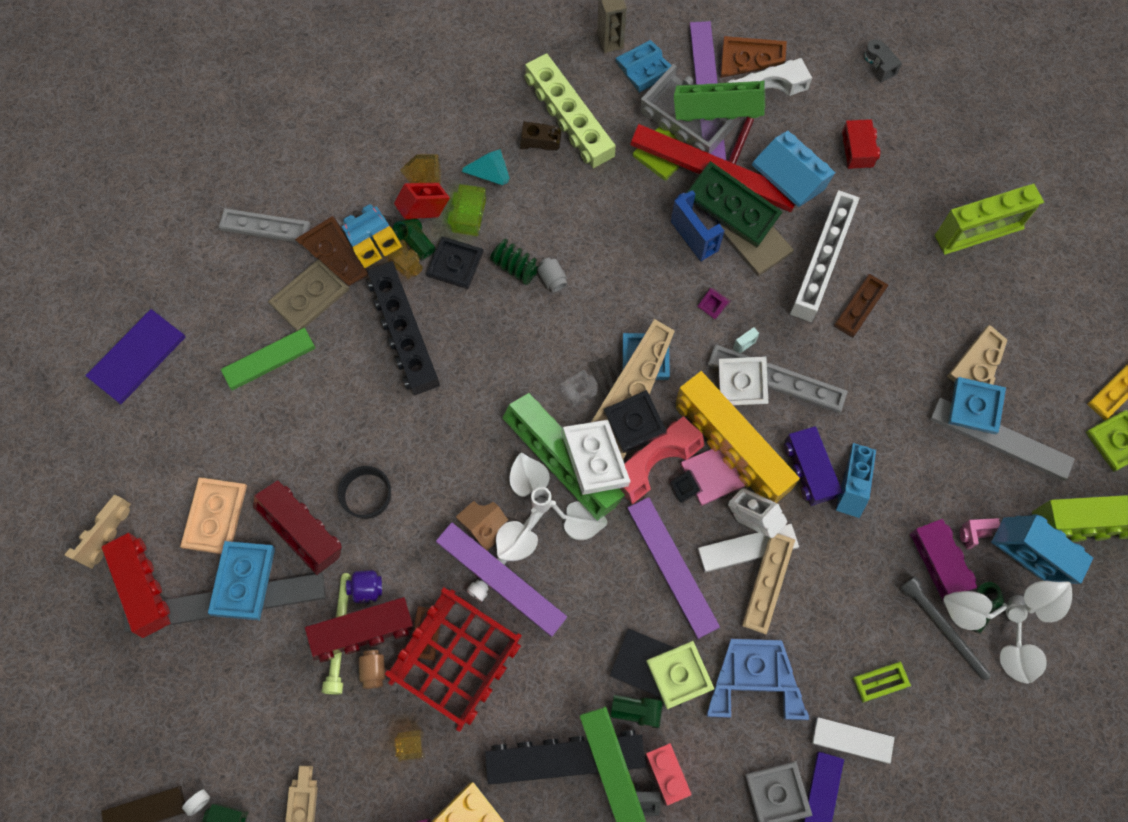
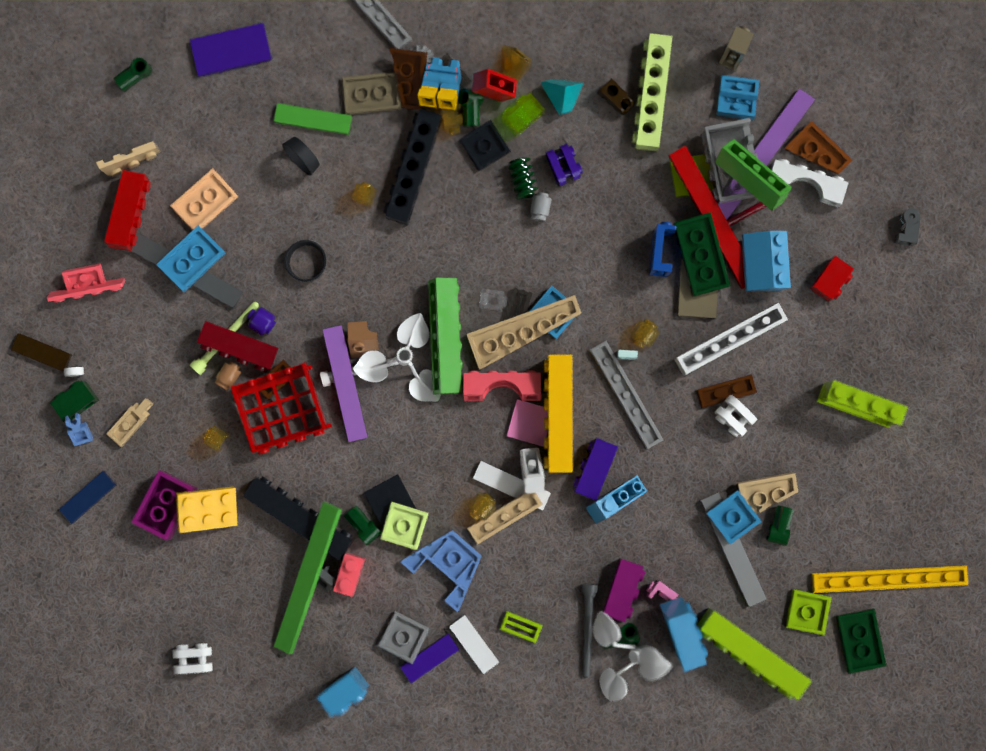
camera: 40 degrees right, 15 degrees up
(45, 450) = (131, 76): none -> dark green piece
(139, 694) = (84, 281): none -> coral bracket
(279, 403) = (301, 155): none -> black tyre
(297, 527) = (248, 250): dark red brick -> none
(372, 383) = (364, 194): none -> clear yellow brick
(542, 224) = (573, 169): none -> dark purple brick
(595, 457) = (461, 355): white plate -> none
(635, 421) = (506, 351): black tile -> none
(673, 568) = (455, 459): medium lavender tile -> none
(686, 486) = (506, 417): black tile -> none
(713, 303) = (631, 311): magenta slope -> none
(739, 590) = (482, 506): none -> clear yellow head
(744, 380) = (600, 380): white plate -> none
(745, 310) = (645, 333): none -> clear yellow head
(891, 317) = (724, 416): none -> white brick
(1023, 385) = (780, 526): none -> dark green piece

